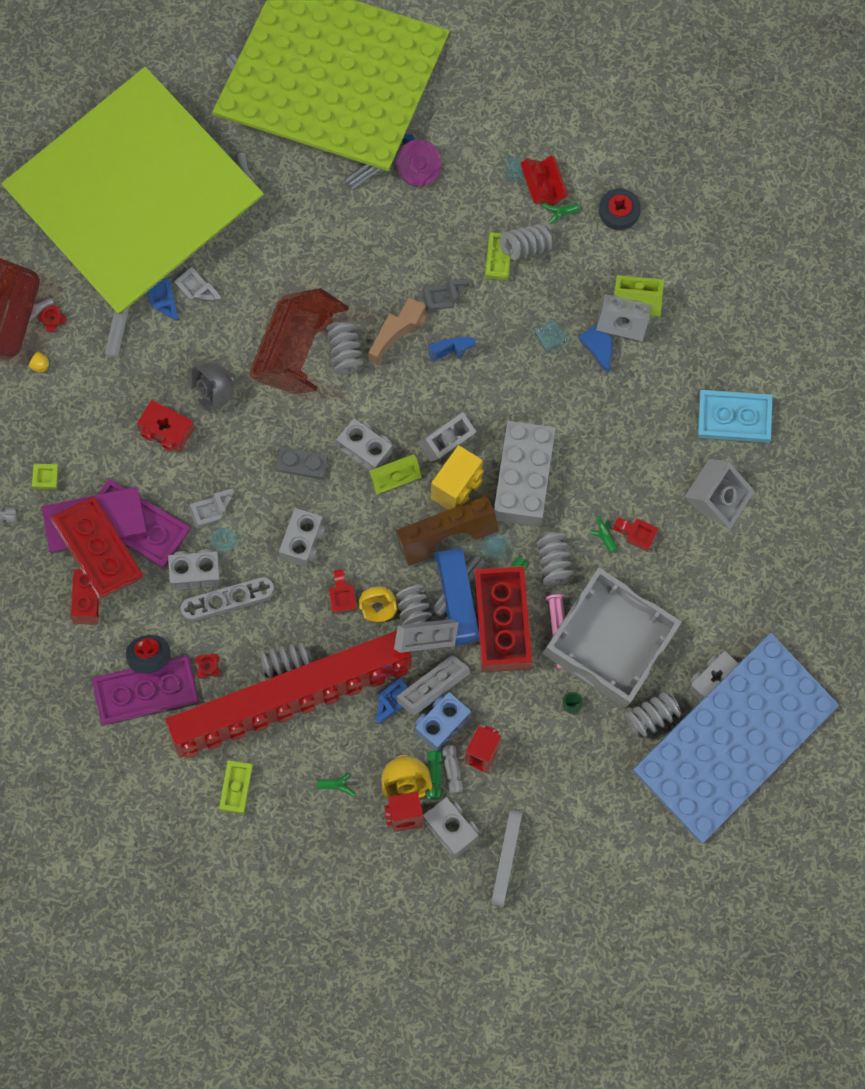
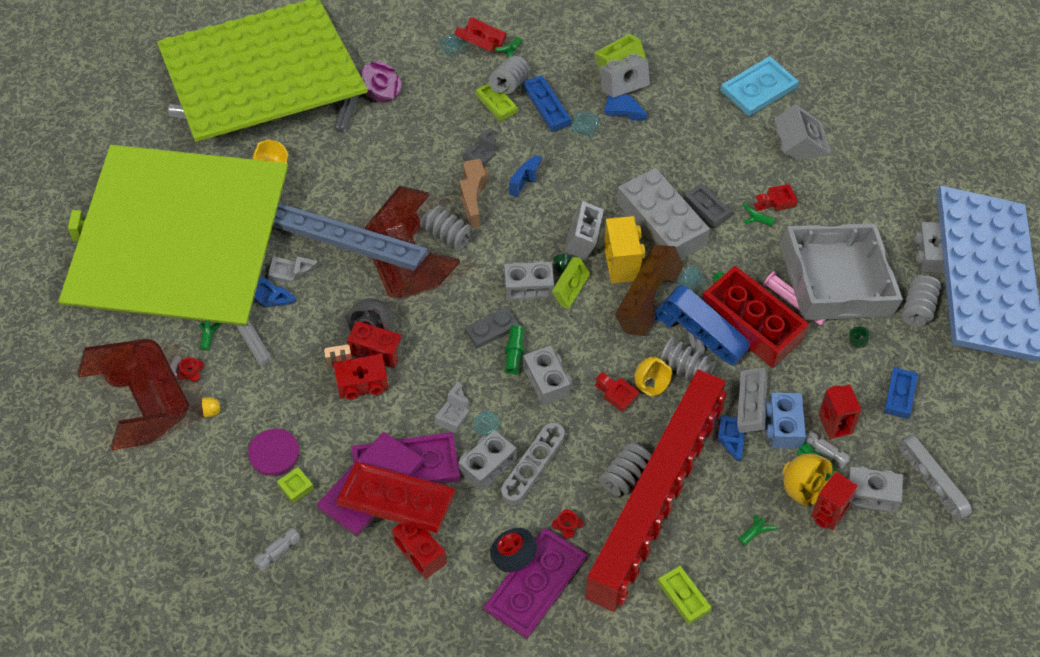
camera: 40 degrees left, 15 degrees down
(54, 437) = (273, 452): none -> magenta tile
(69, 119) = (76, 224): none -> lime plate
(90, 296) = (207, 333): none -> green bar
(159, 397) = (337, 349): none -> light nougat tile
(197, 406) = (372, 340): none -> red bracket
(255, 298) = (349, 237): none -> sand blue plate
(265, 164) = (270, 151): none -> yellow hair
(299, 496) = (514, 350): none -> green pin
(406, 450) = (561, 262): none -> dark green hinge
(426, 635) = (720, 360): light grey plate -> none
(537, 291) = (546, 103): none -> blue plate
(553, 558) = (742, 253): light grey piece -> none
(555, 773) = (900, 393): none -> blue plate
(573, 493) = (707, 205): none -> dark grey plate
(622, 217) = (549, 21): black wheel -> none

